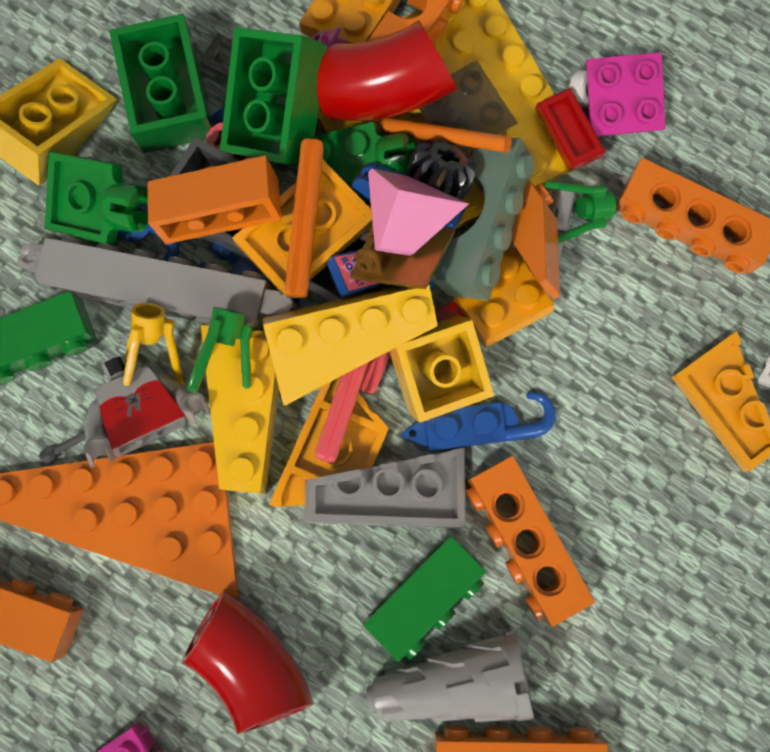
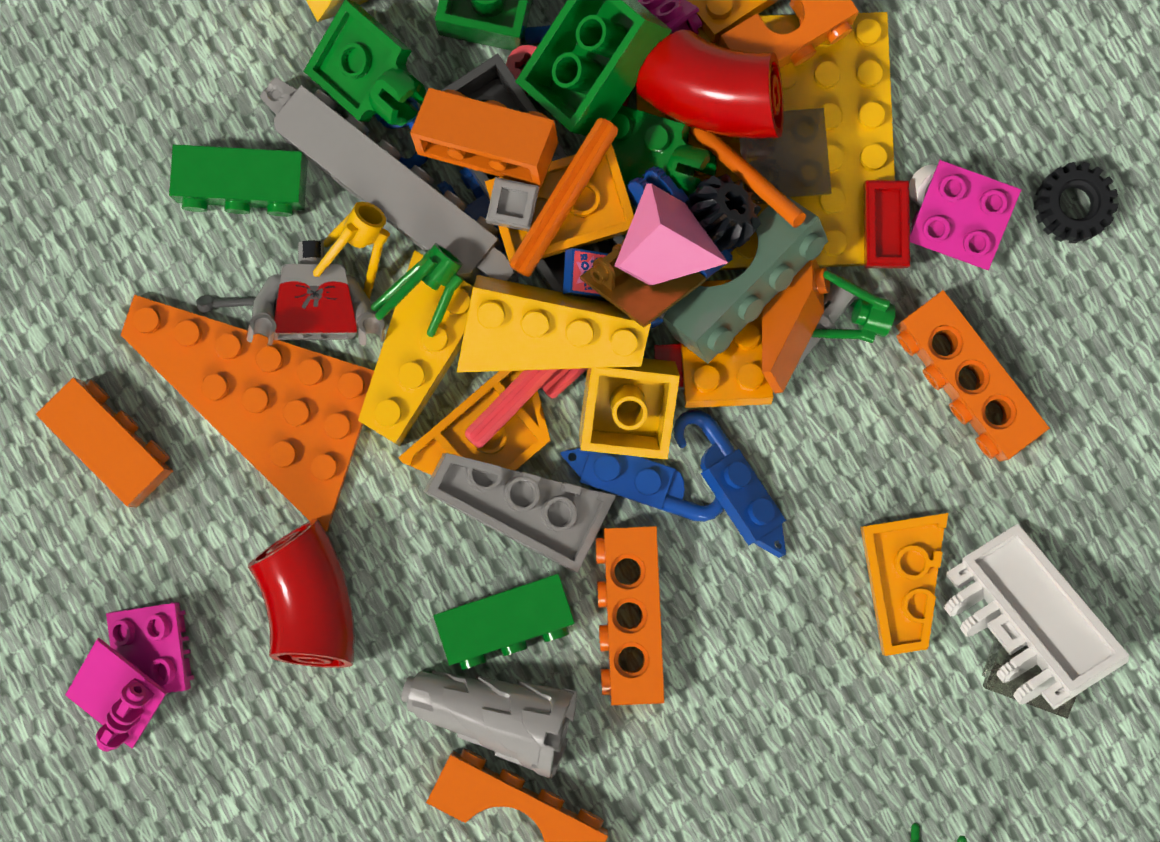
camera: 25 degrees right, 5 degrees up
(264, 244) = (512, 204): none -> light grey tile
(557, 392) = (736, 485): none -> blue plate
(710, 33) = (1096, 189): none -> black tyre

